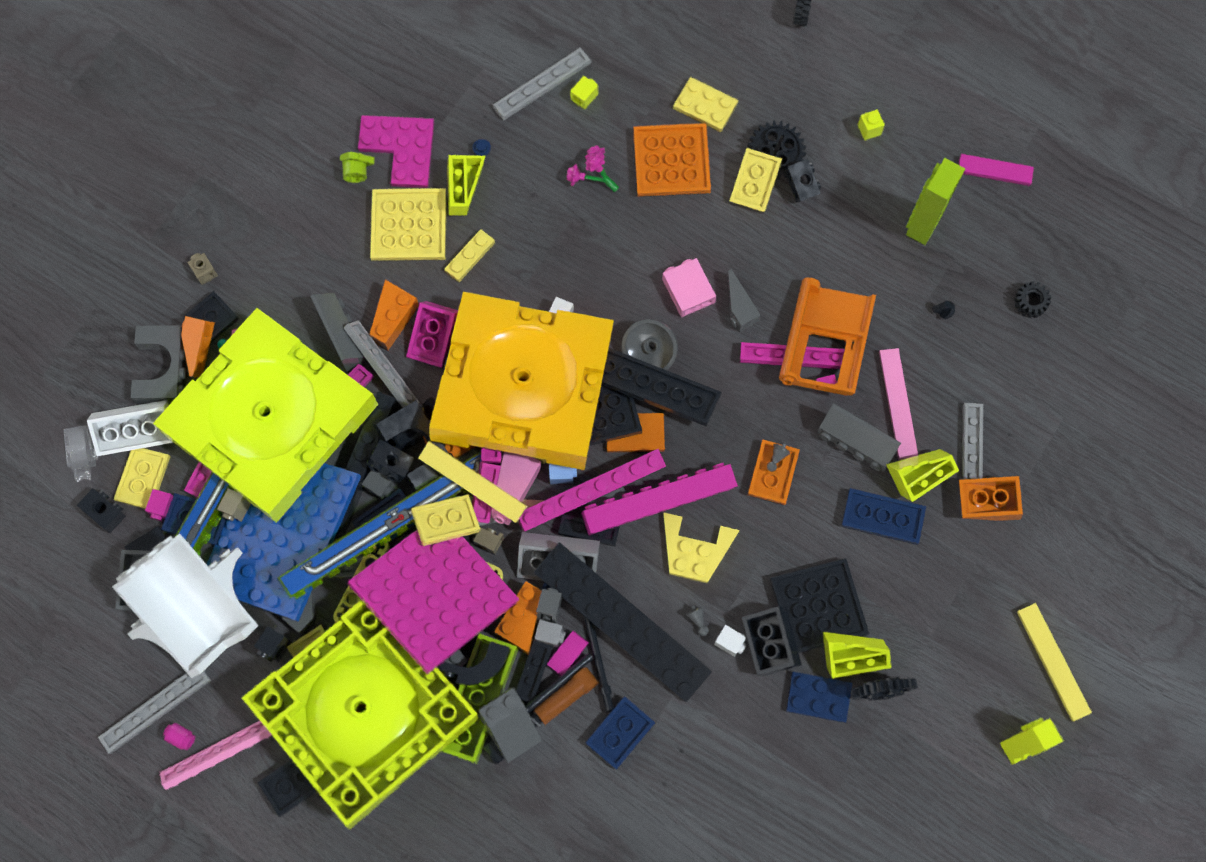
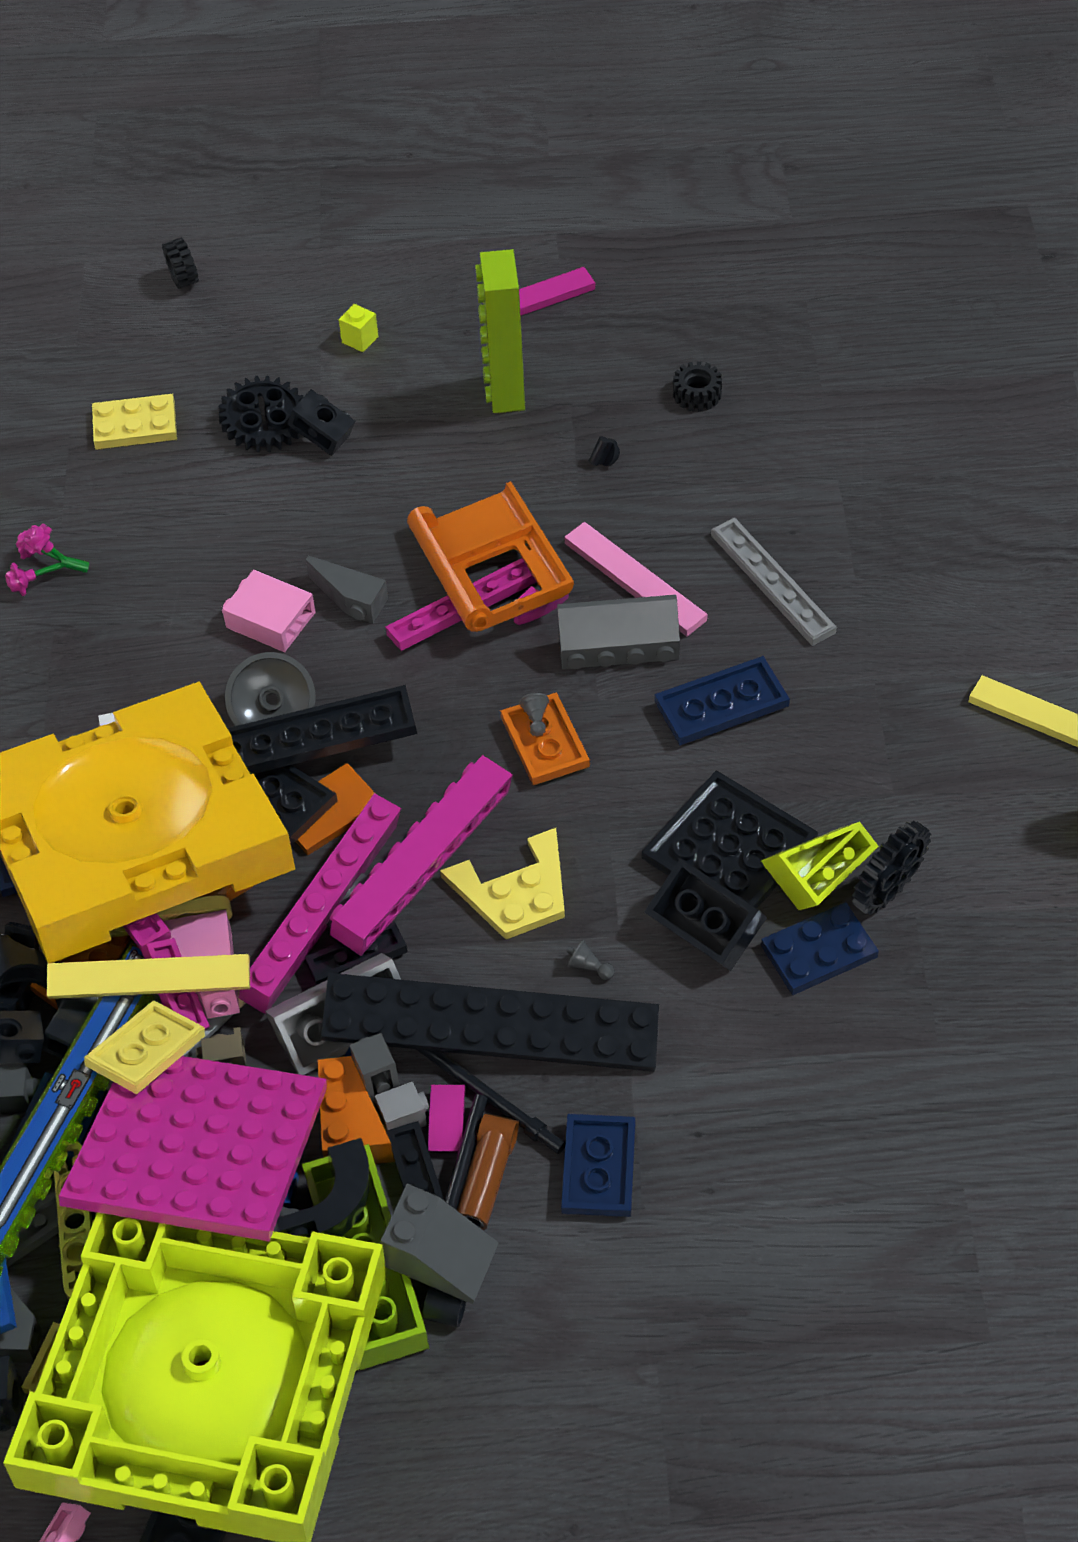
camera: 35 degrees left, 20 degrees down
(561, 474) = (263, 909): light blue brick -> none
(672, 159) = (136, 496): orange plate -> none
(731, 641) = (652, 956): white brick -> none
(755, 180) = (262, 453): light yellow plate -> none
(922, 473) = (727, 623): neon yellow wedge -> none
(991, 498) = (834, 596): orange slope -> none

